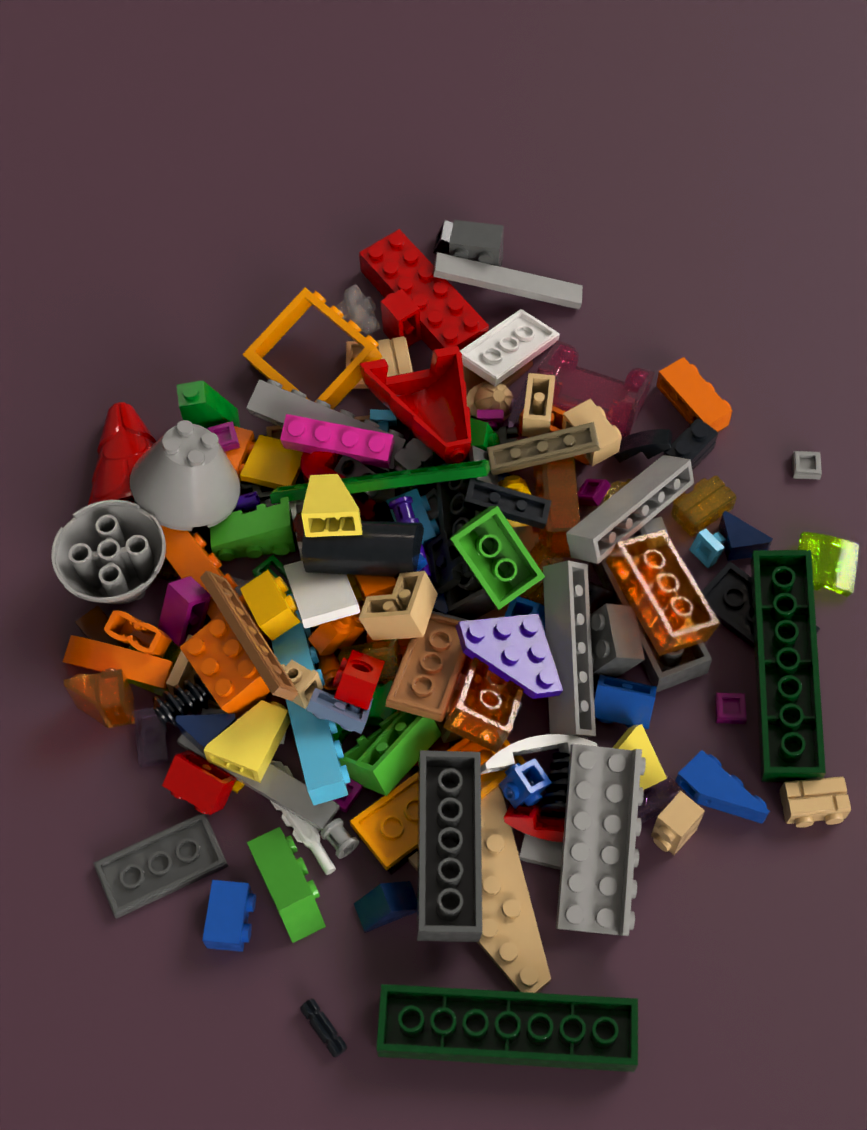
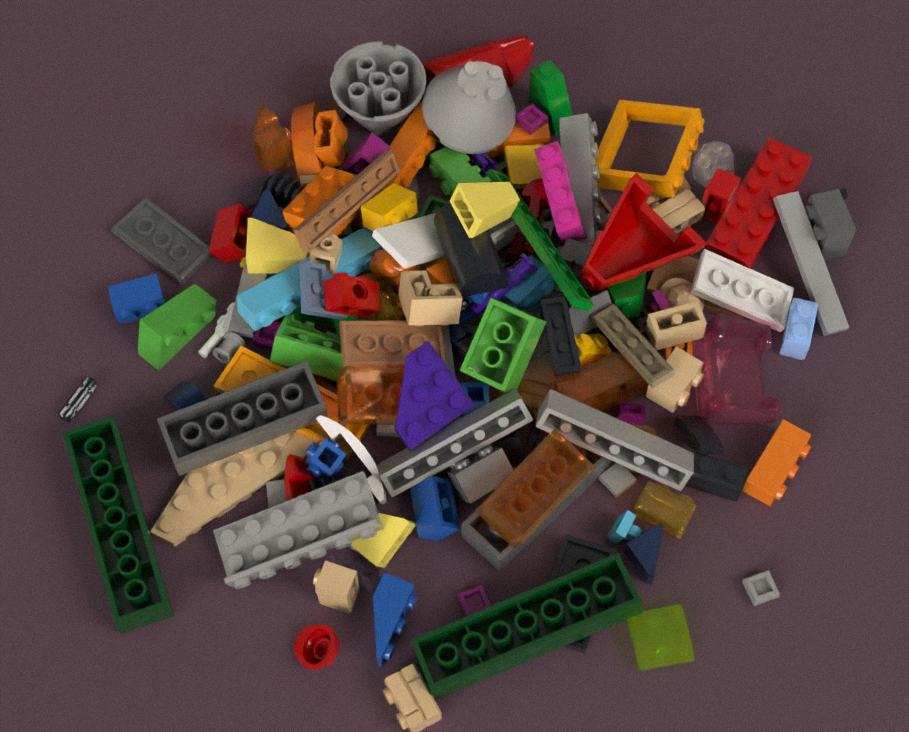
camera: 65 degrees right, 0 degrees up
(572, 323) = (798, 329): none -> light blue brick
(729, 870) = (316, 646): none -> red piece

